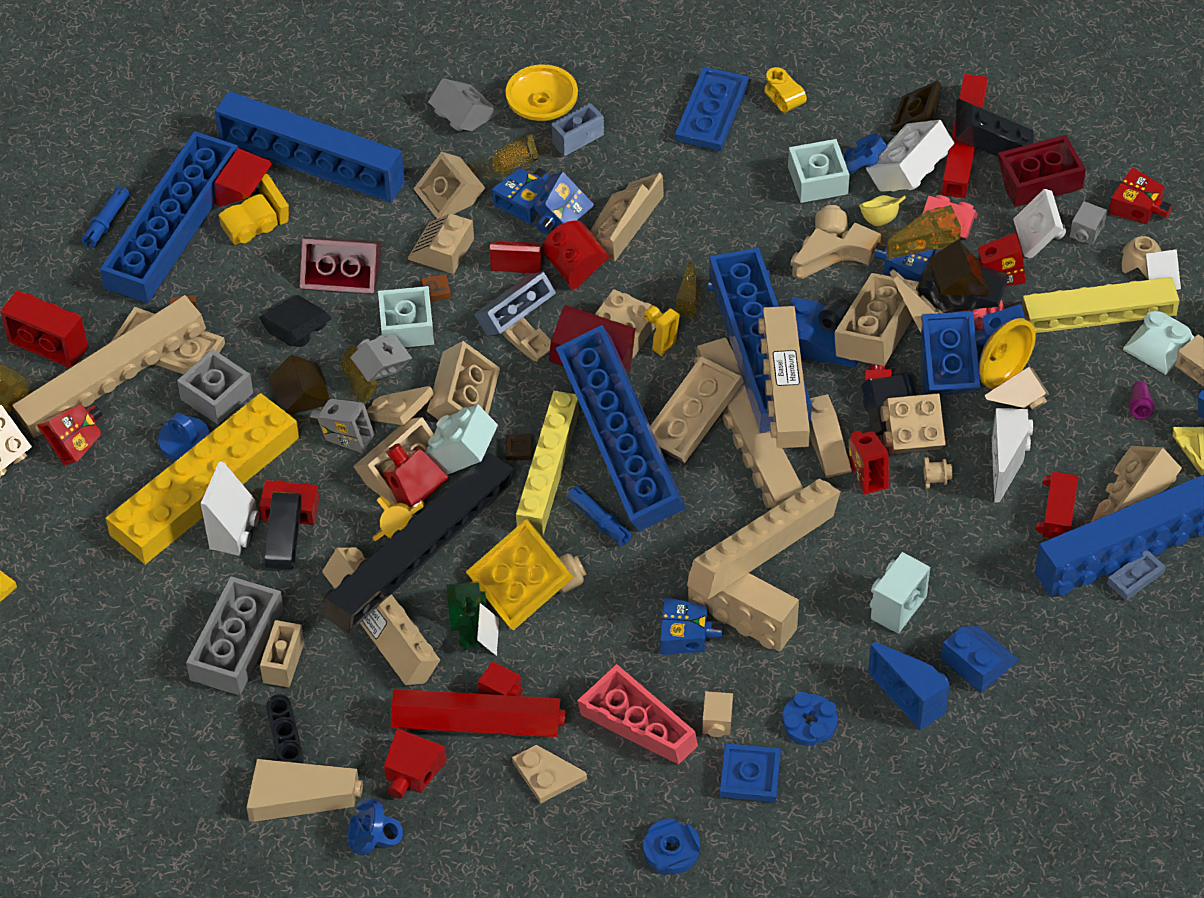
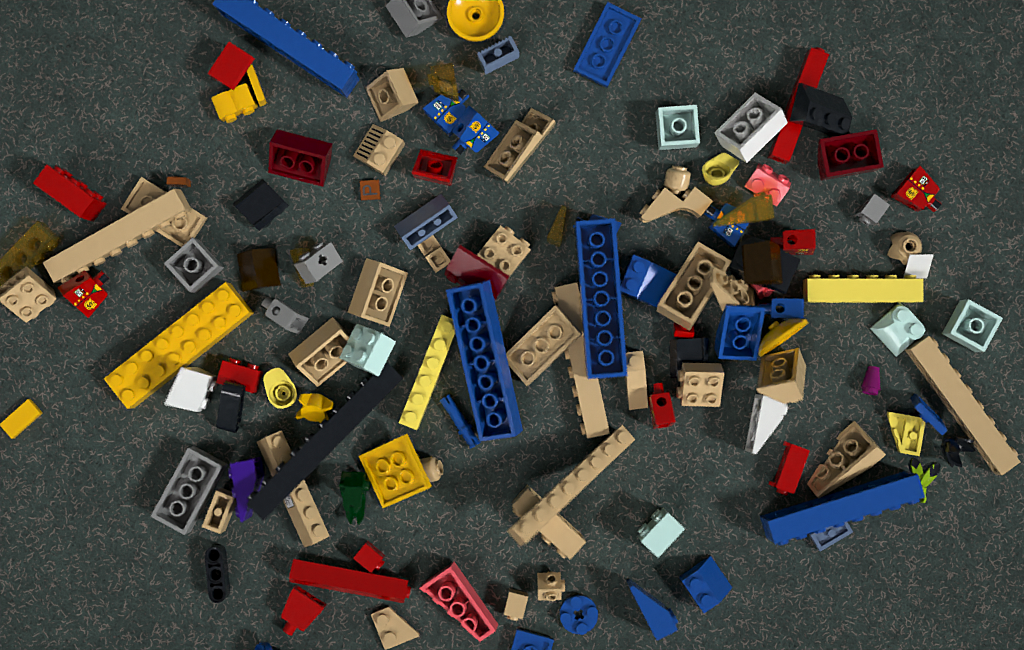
camera: 10 degrees right, 35 degrees up
(100, 224) = (126, 81): blue pin -> none
(167, 219) = (173, 94): blue brick -> none
(181, 435) = (169, 302): blue tile -> none
(299, 789) = (223, 619): tan slope -> none
(309, 606) = (246, 477): none -> dark purple slope
(347, 499) = (276, 383): none -> light yellow cap
(399, 406) = (327, 304): tan wing -> none
(407, 315) = (342, 222): light aqua brick -> none
(412, 475) = (330, 373): red torso -> none
(488, 629) = (367, 509): white sticker -> none
(518, 447) = (411, 349): dark brown tile -> none
(574, 252) = (478, 180): red brick -> none
(666, 328) = (525, 259): yellow piece -> none
(686, 627) = (499, 524): blue torso -> none
(761, 682) = (550, 586): none -> tan brick
(783, 90) = (667, 39): yellow piece -> none
(785, 377) = (611, 354): tan brick -> none
(833, 314) = (662, 278): black brick -> none
(865, 153) = (718, 123): blue plate -> none
(917, 106) = (765, 74): dark brown slope -> none
(936, 472) = (708, 423): tan brick -> none
(1039, 224) = (835, 209): white tile -> none

